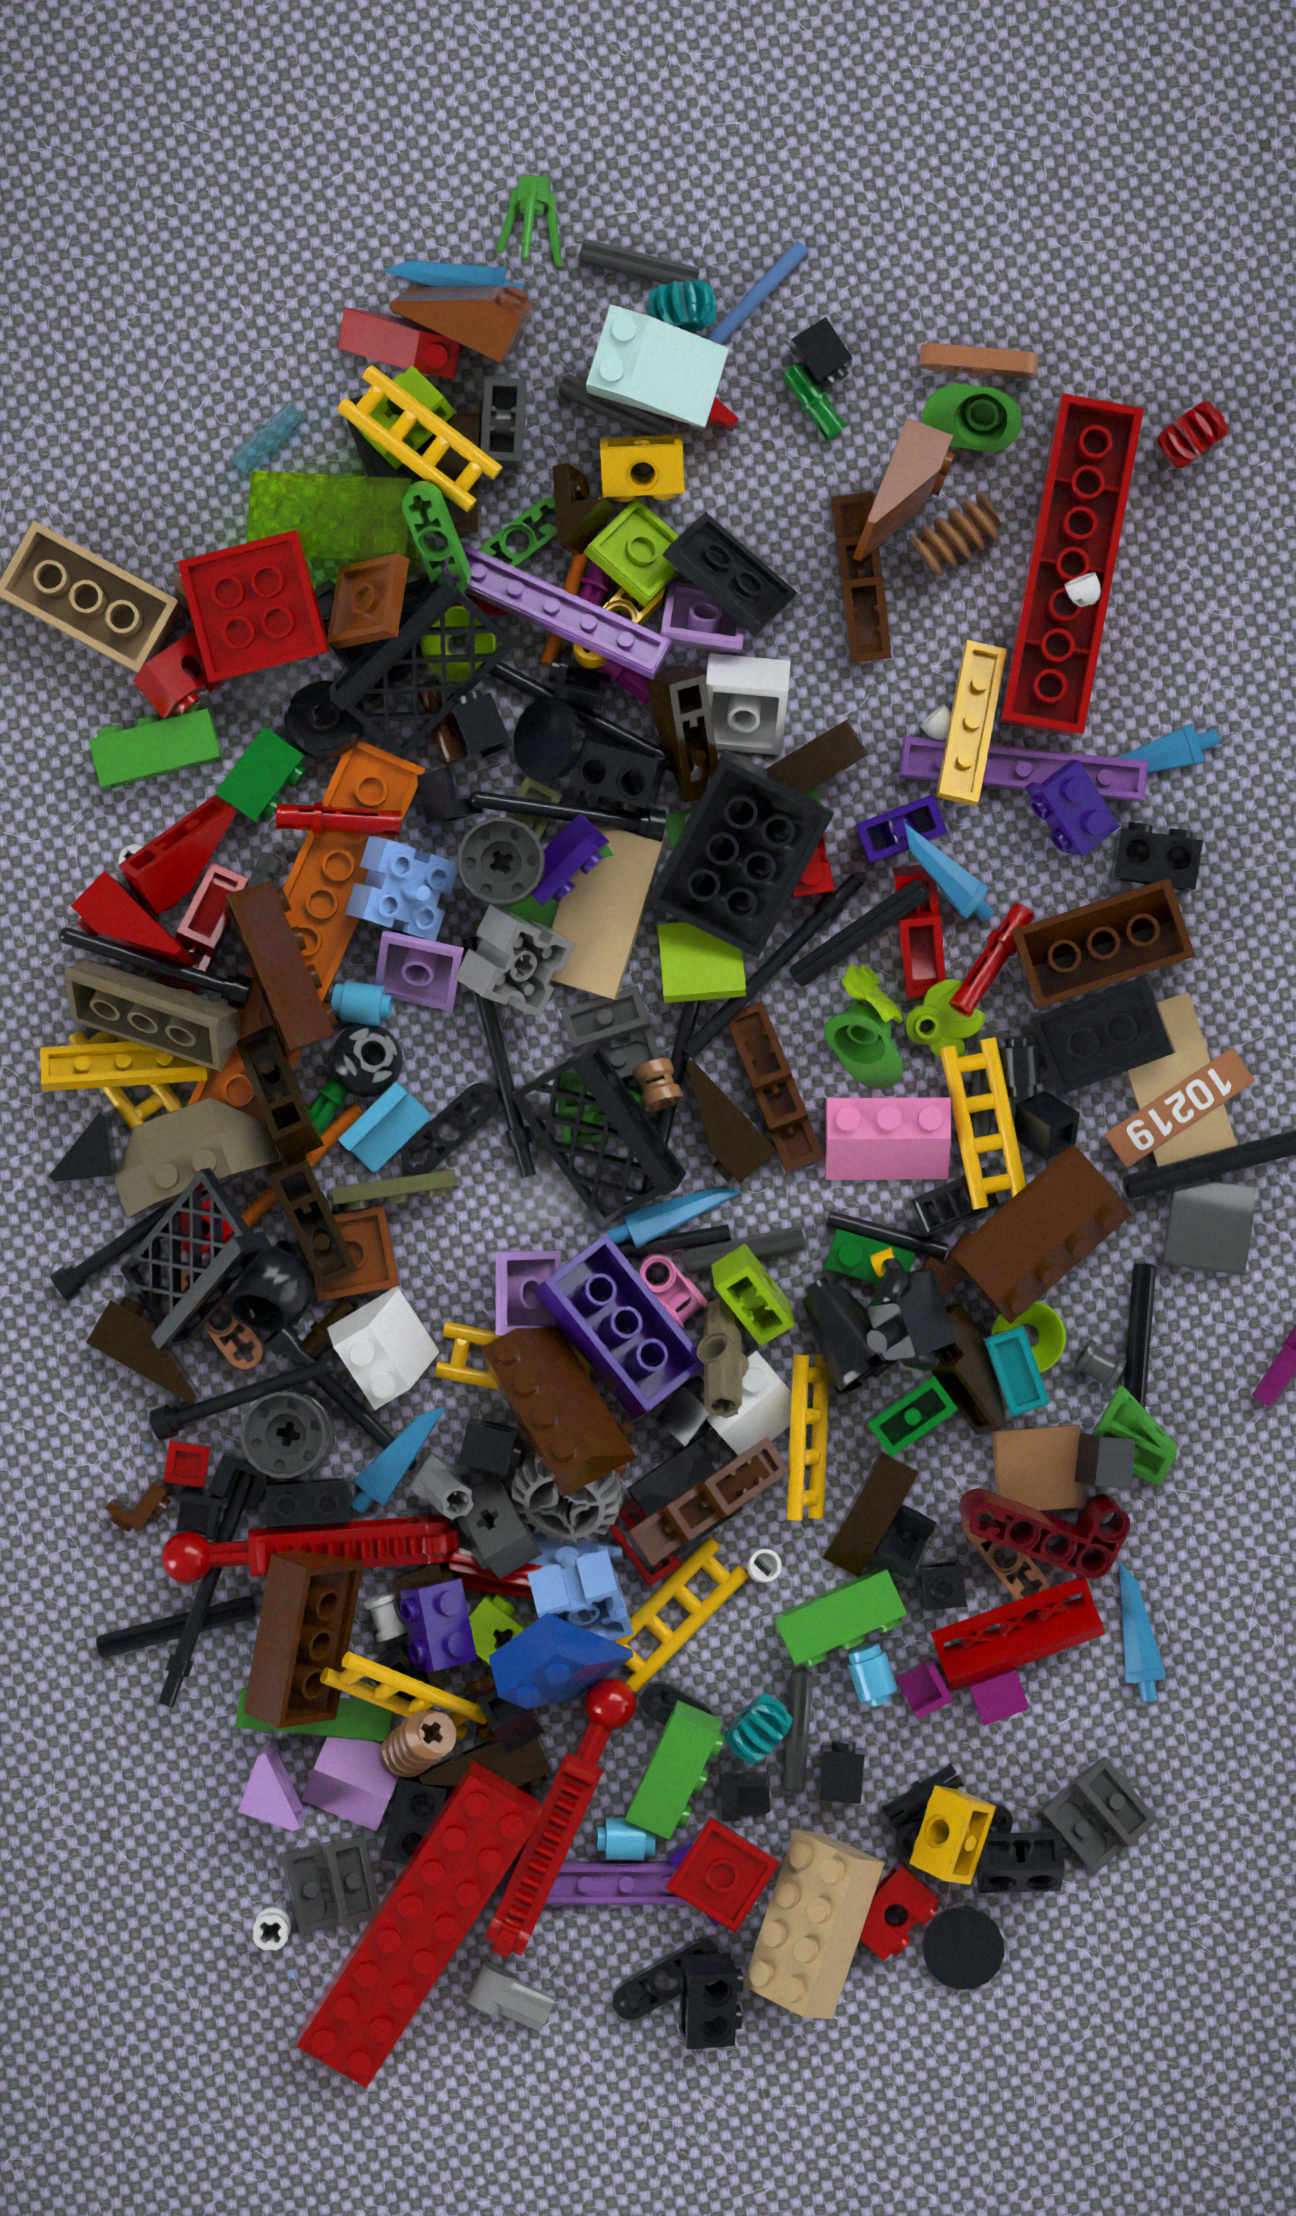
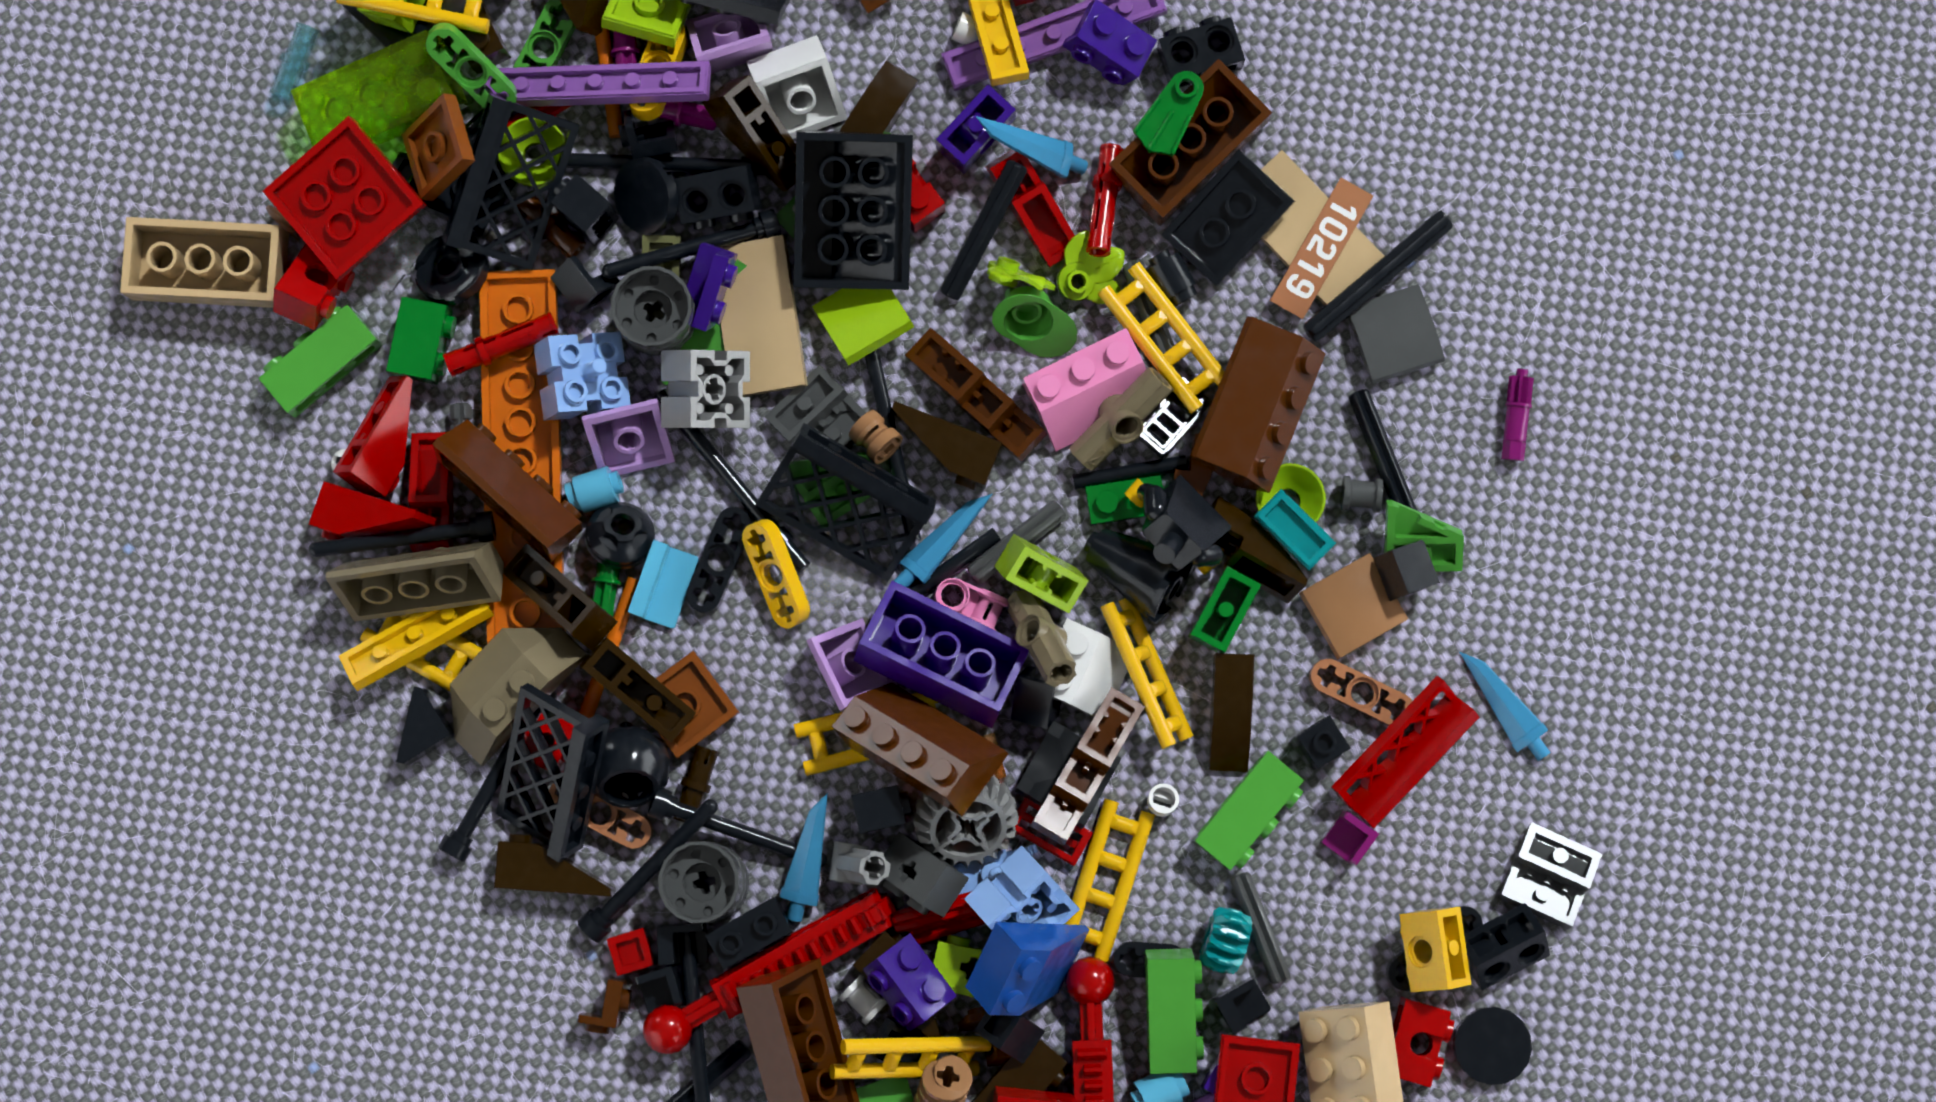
camera: 20 degrees left, 5 degrees down
(384, 1346) = (750, 768): white slope -> none
(394, 1190) = (696, 632): olive plate -> none
(506, 1198) = (756, 553): none -> yellow beam
(828, 909) = (948, 225): black bar -> none
(841, 1772) = (1314, 944): black brick -> none
(871, 1674) = (1299, 848): medium azure brick -> none
(902, 1182) = (1121, 418): none -> dark tan piece
(904, 1541) = (1271, 720): black bracket -> none
(917, 1798) = (1390, 936): black pin -> none
(998, 1696) = (1415, 814): magenta panel -> none
(1040, 1527) = (1379, 652): dark red beam -> none
(1046, 1124) = (1217, 315): black panel -> none
(1094, 911) = (1170, 115): none -> green piece

